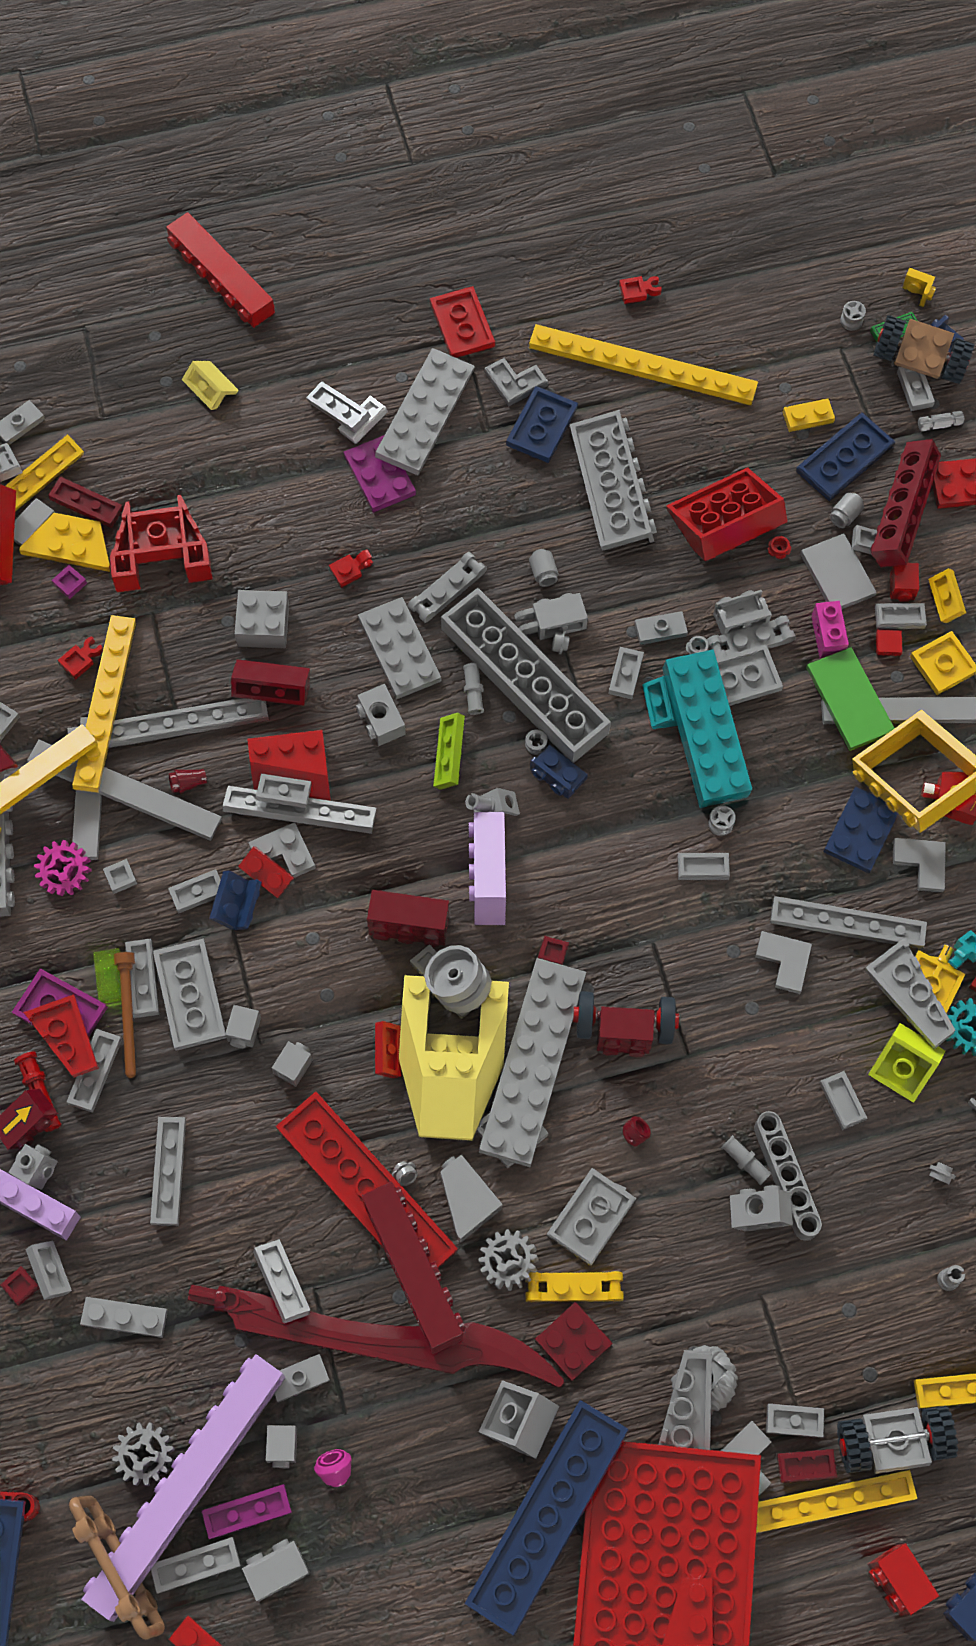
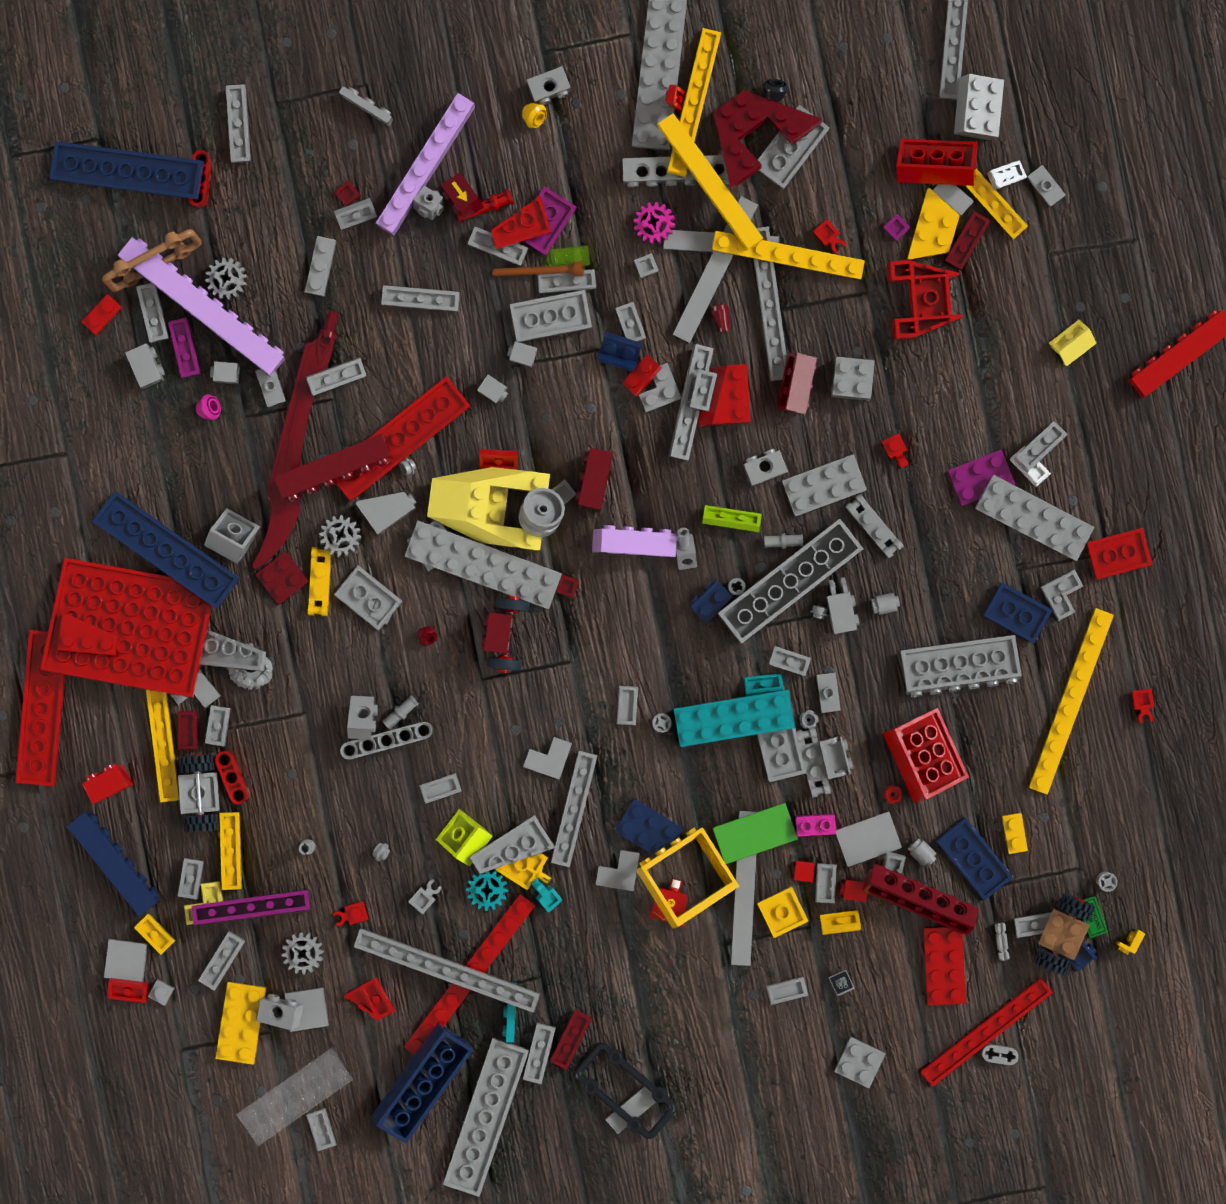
camera: 95 degrees right, 20 degrees up
(878, 1387) = (231, 787): none -> red beam

